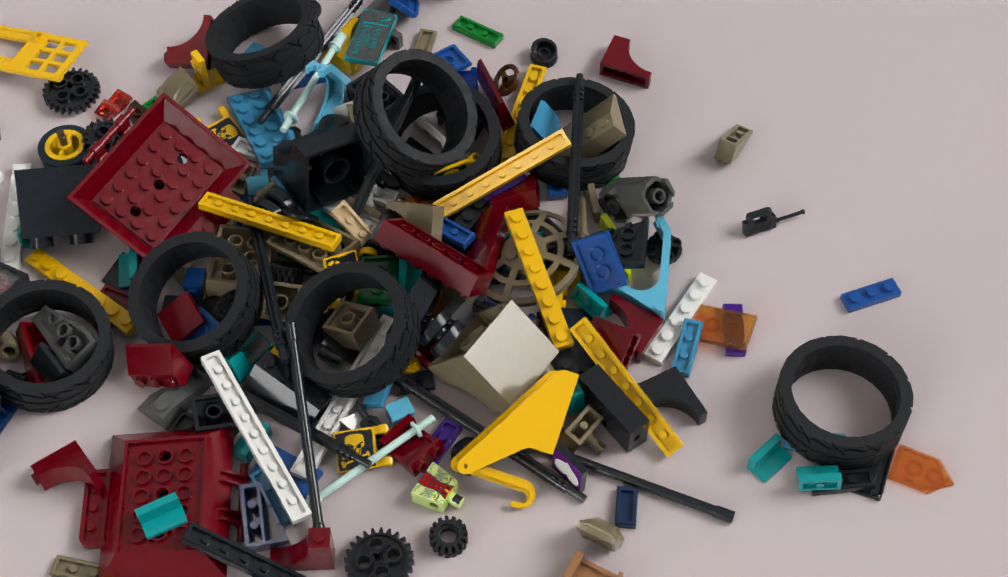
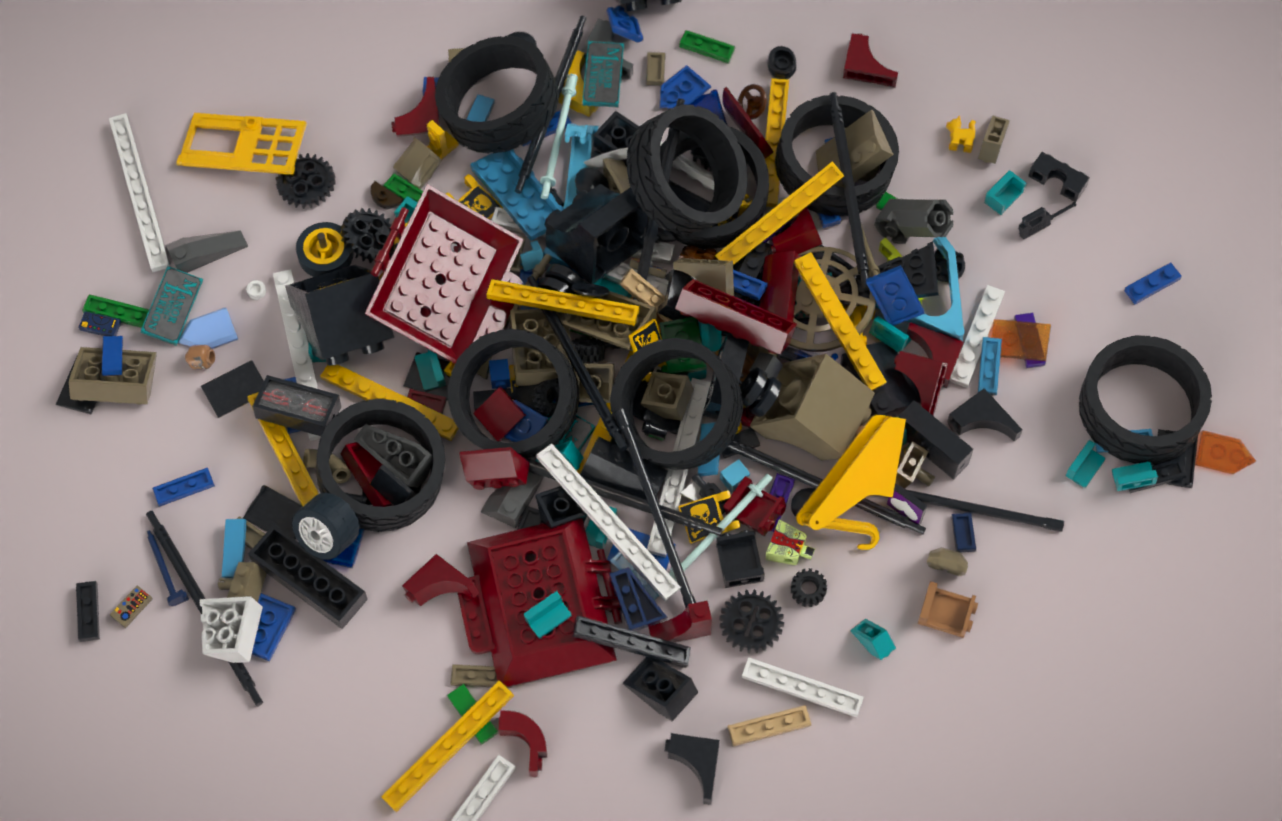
camera: 10 degrees left, 10 degrees up
(113, 106) = (353, 190): clear red slope -> none
(367, 251) = (664, 317): yellow tile -> none
(384, 496) = (739, 559): none -> black panel
(544, 121) = (806, 150): dark azure slope -> none
(594, 202) = (870, 226): dark tan tile -> none
(608, 361) = (918, 392): yellow plate -> none
(702, 137) = (961, 136): none -> yellow animal
(735, 191) = (1005, 192): none -> teal panel
(782, 175) = (1048, 167): none -> black arch

